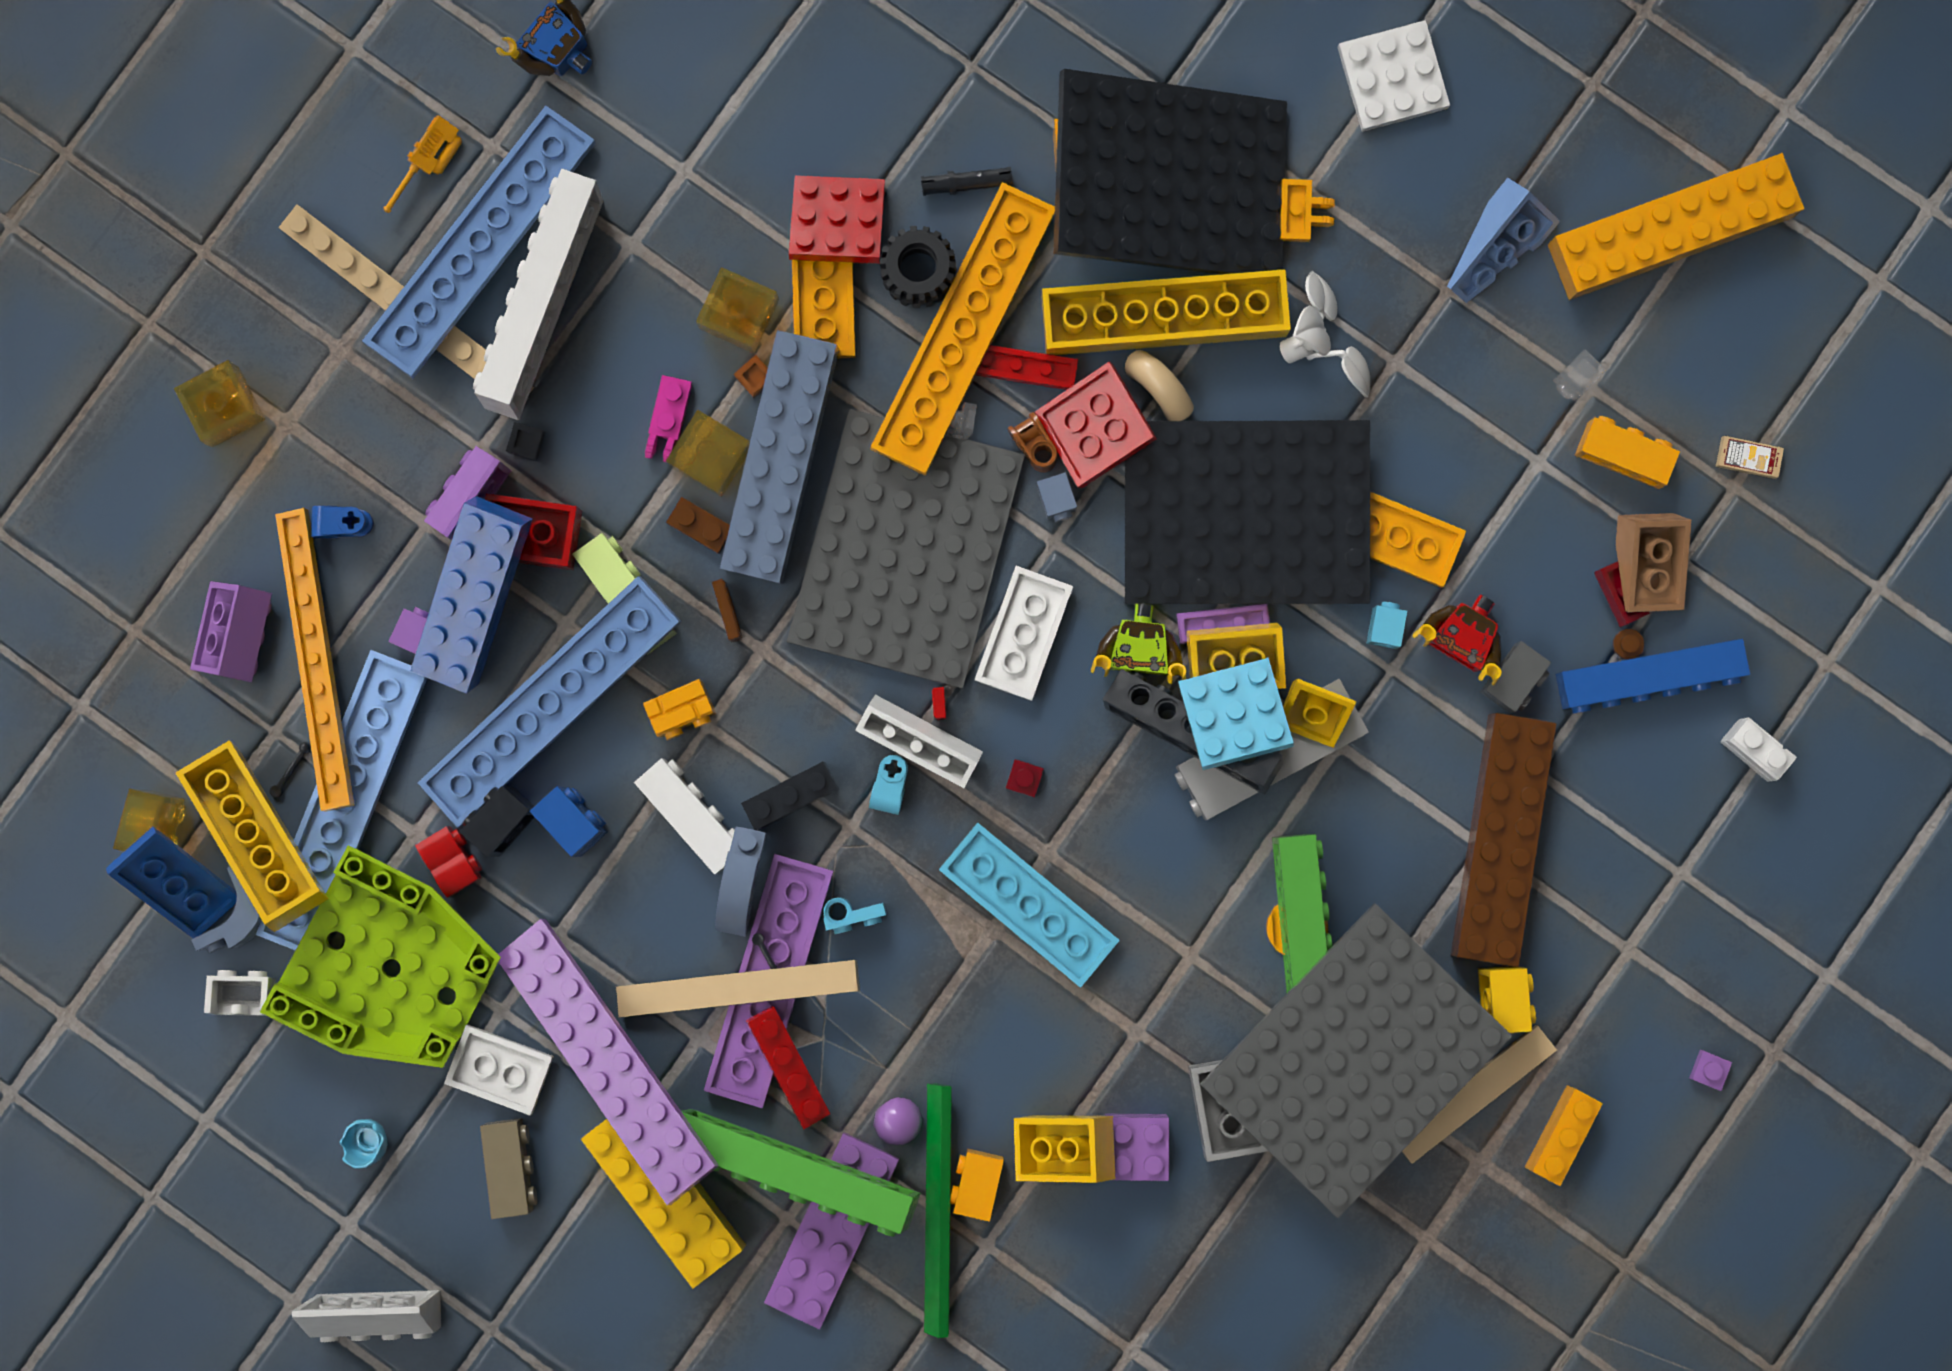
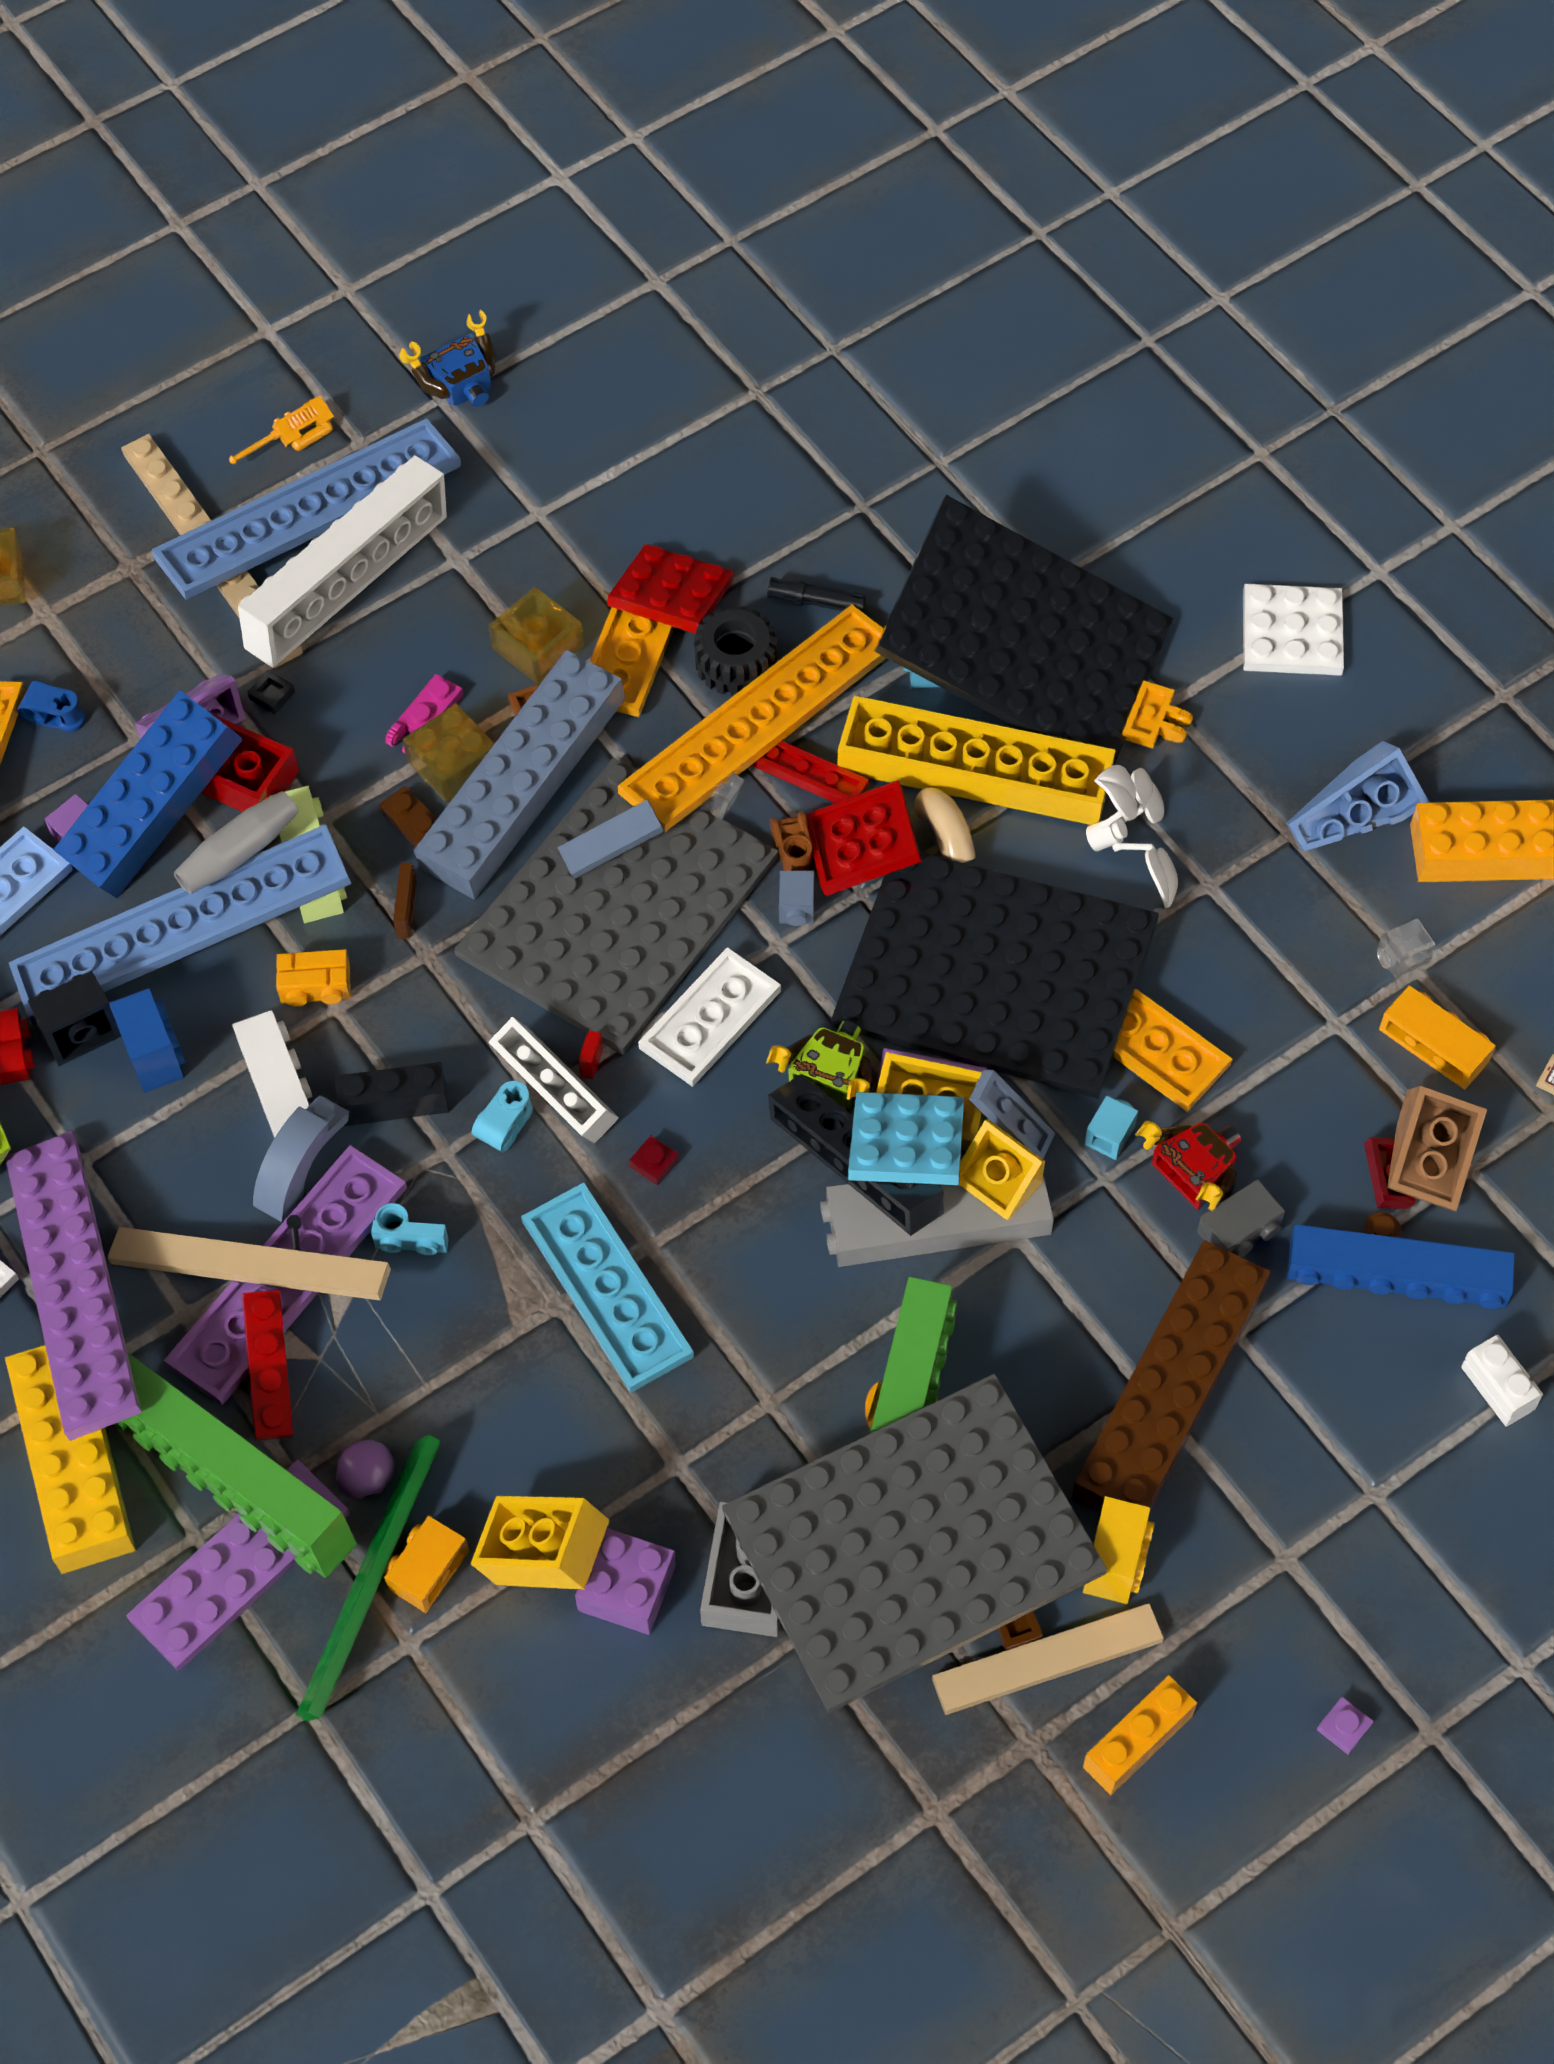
camera: 15 degrees right, 25 degrees down
(570, 622) = (236, 842): none -> light grey plate
(883, 501) = (610, 839): none -> sand blue tile
(1308, 653) = (1011, 1112): none -> sand blue plate

